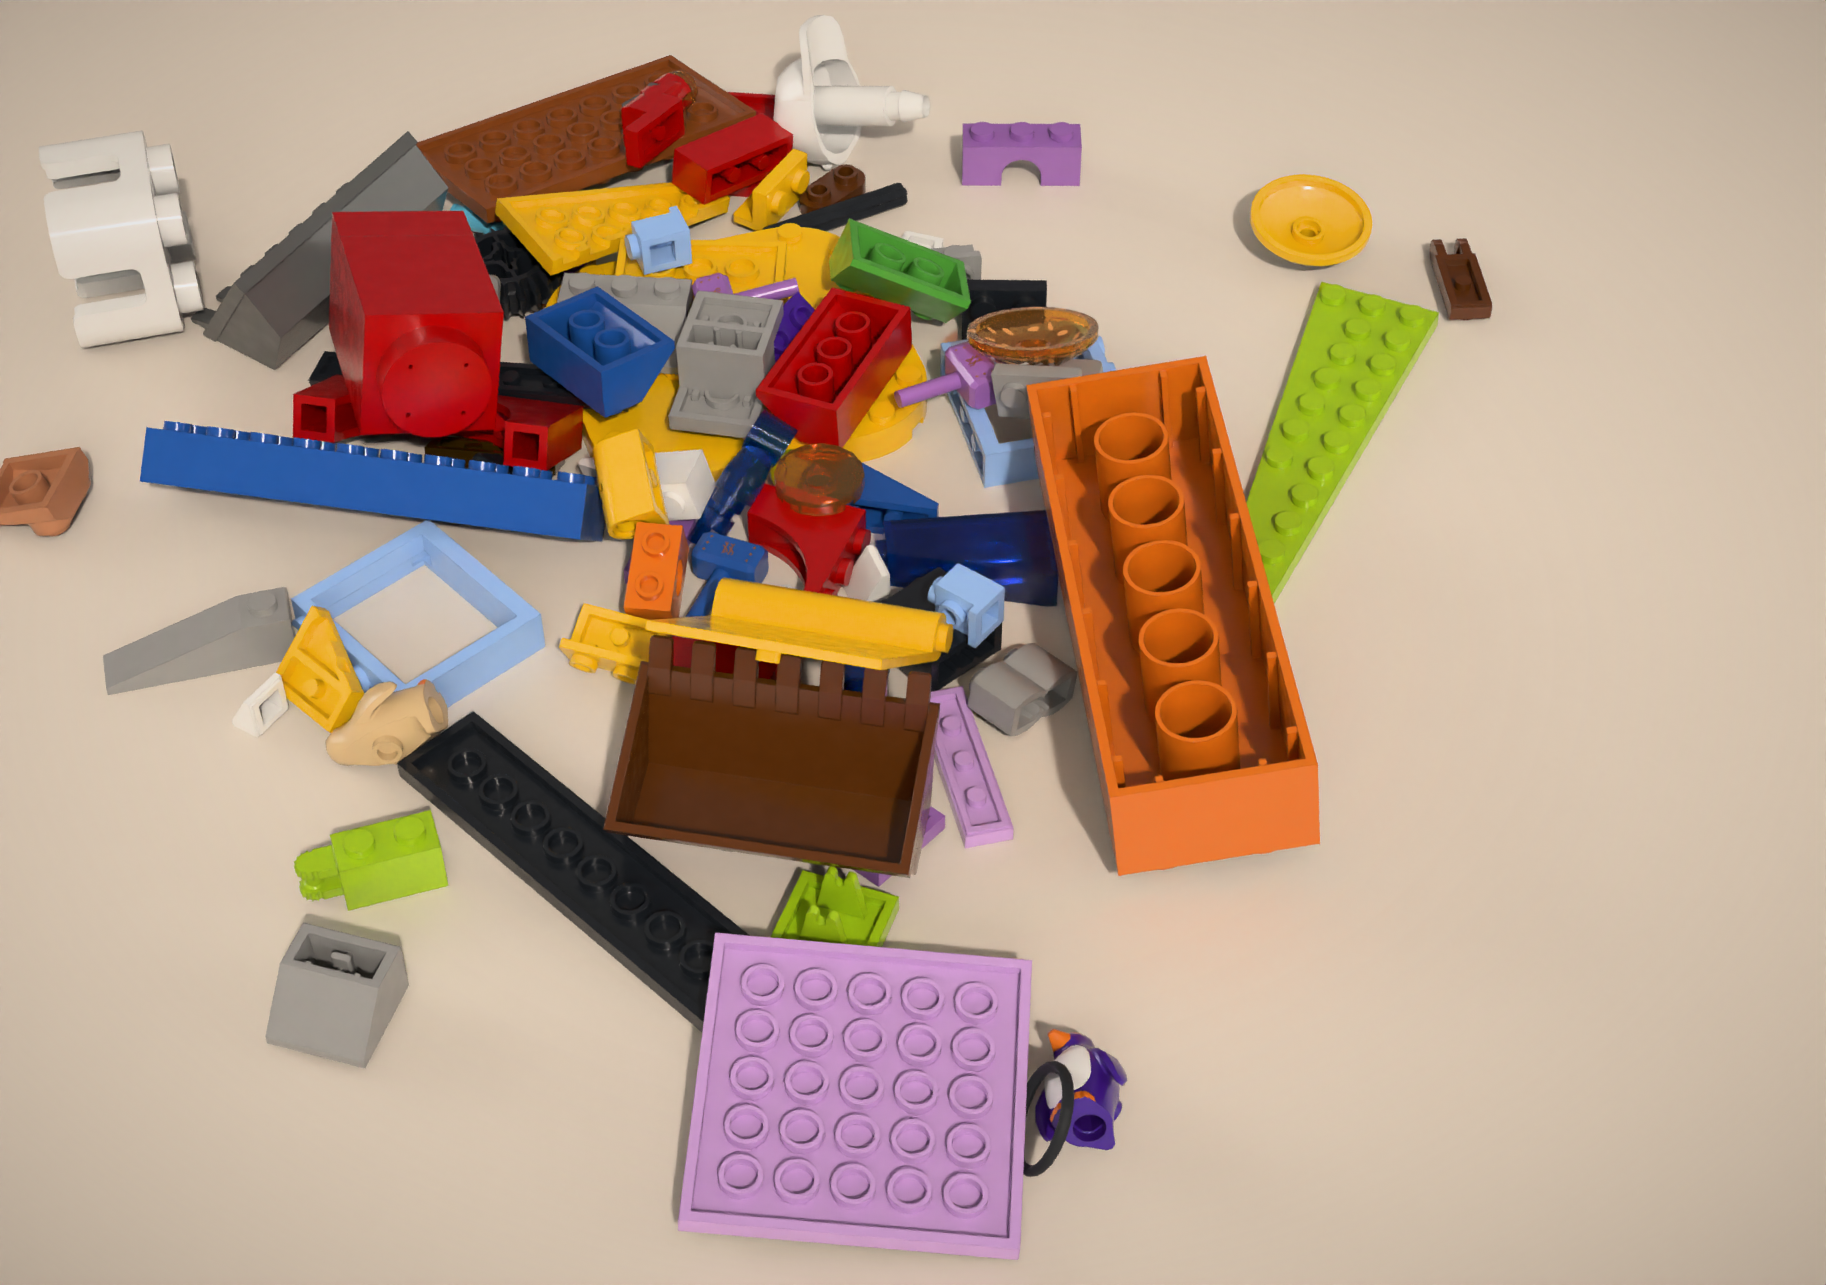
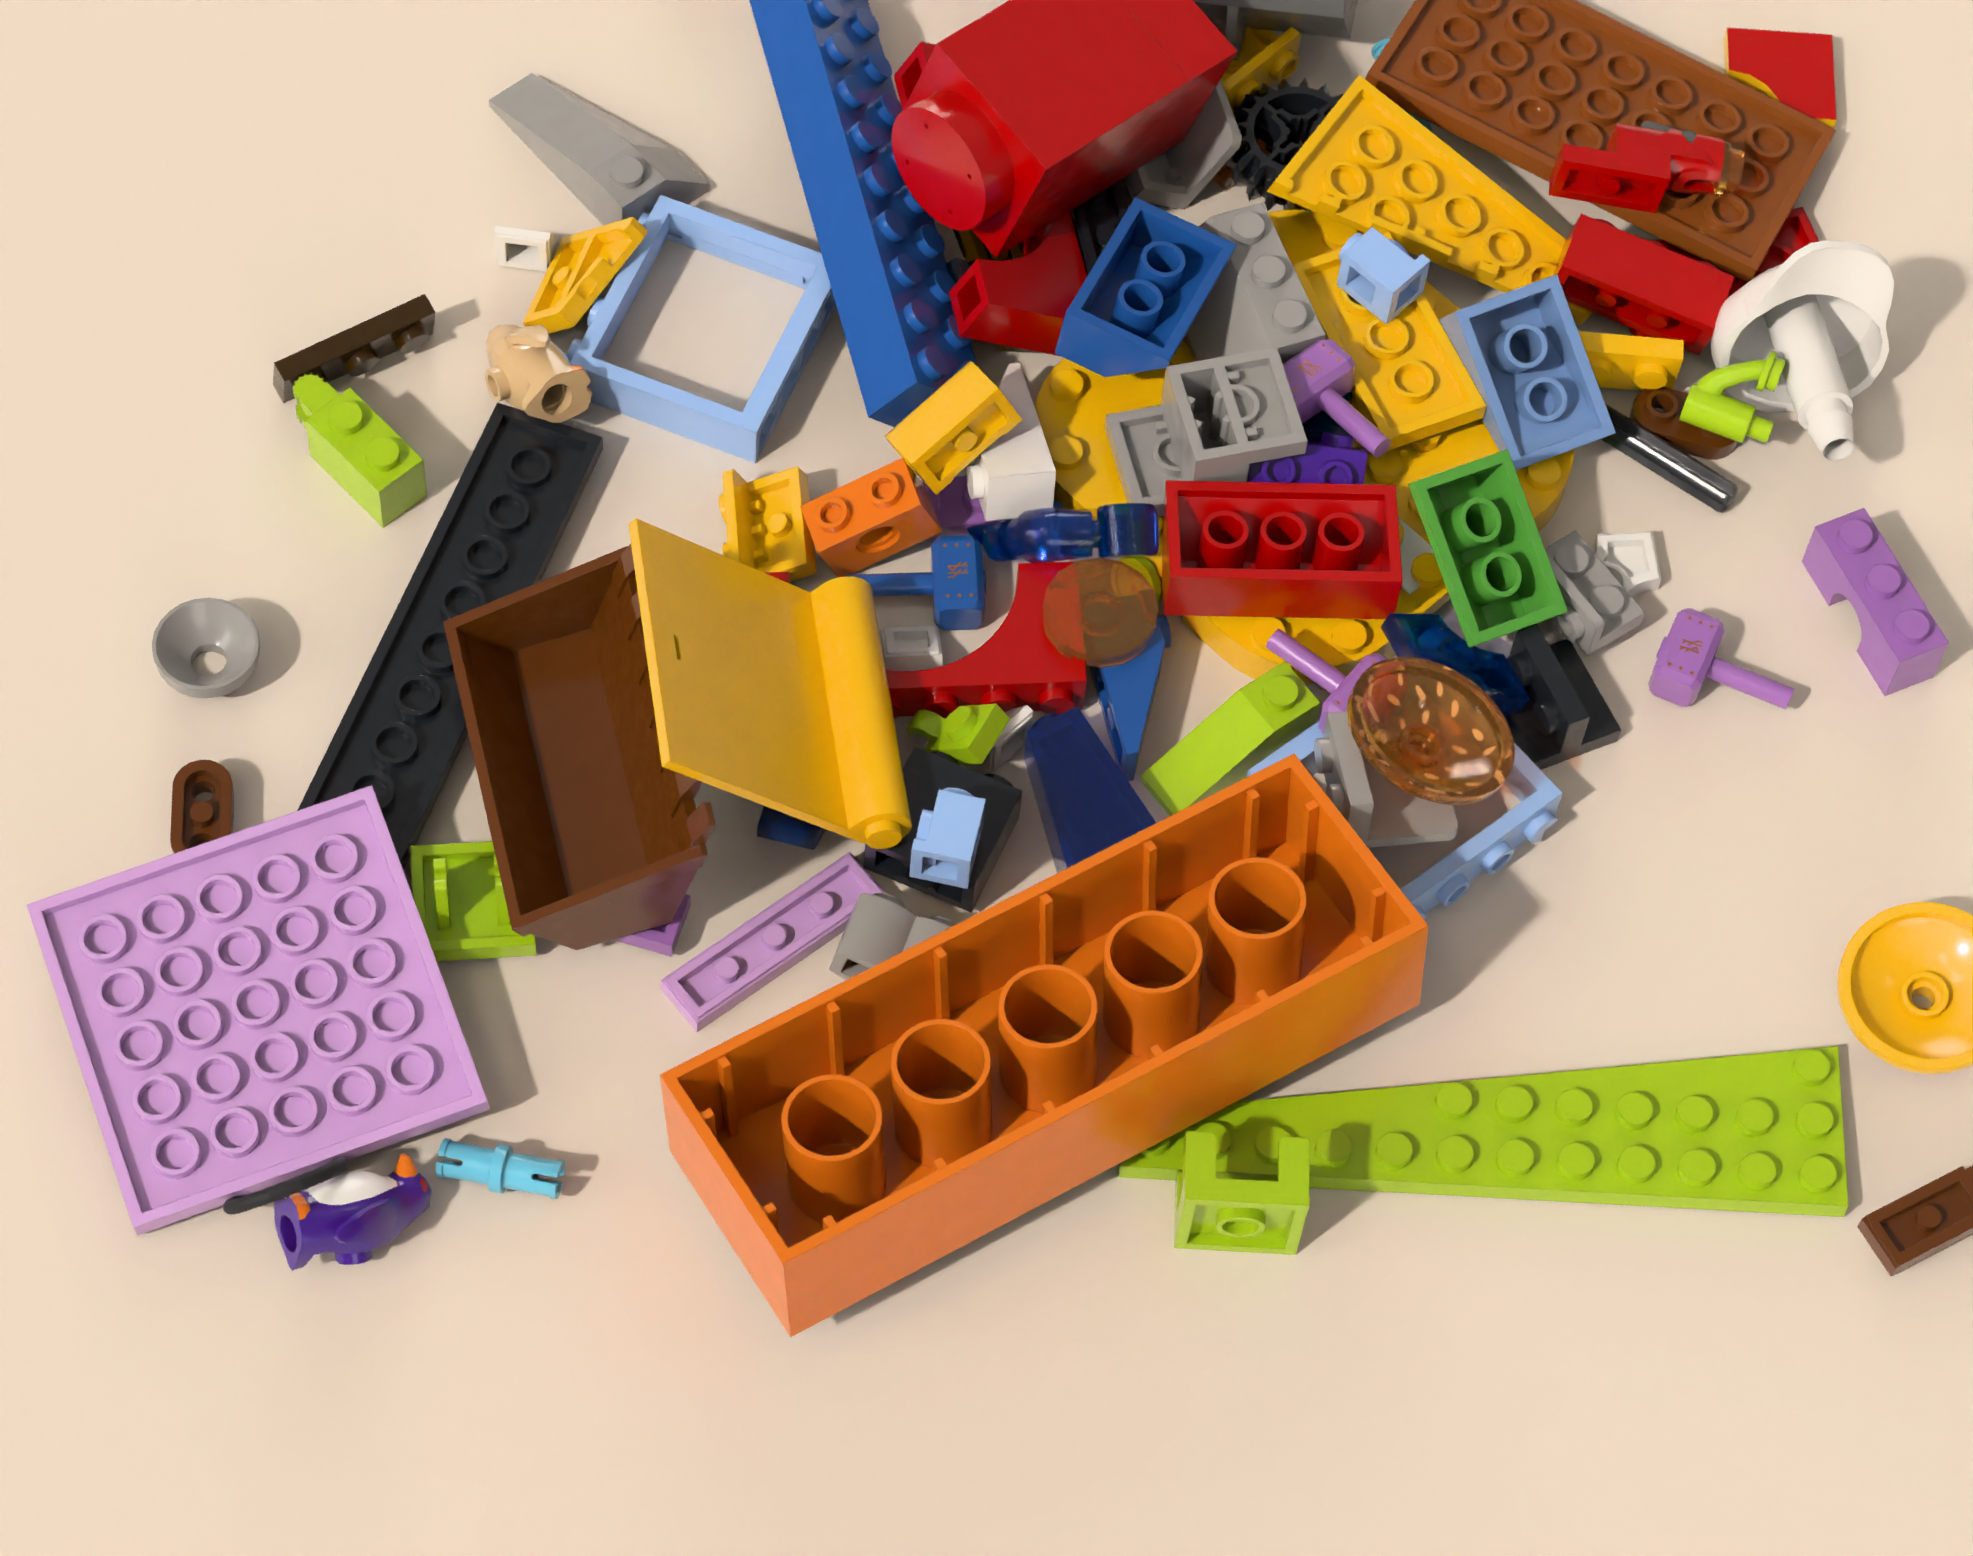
camera: 60 degrees right, 15 degrees up
(283, 838) = (358, 347): none -> dark brown plate
(335, 995) = (173, 494): light grey slope -> none
(495, 1006) = (200, 628): none -> light grey piece
(602, 59) = (1785, 67): none -> red tile
(656, 1081) = (201, 821): none -> reddish brown plate
(764, 207) = (1530, 372): none -> medium blue slope
(844, 164) = (1727, 416): none -> lime plant
(872, 579) = (964, 734): none -> lime plate
(946, 334) = (1431, 639): none -> clear blue tile
(947, 458) = (1233, 739): none -> lime slope
(1015, 248) = (1689, 658): none -> medium lavender piece
(1080, 986) = (500, 1168): none -> medium azure pin
(1323, 570) = (1241, 1212): none -> lime panel

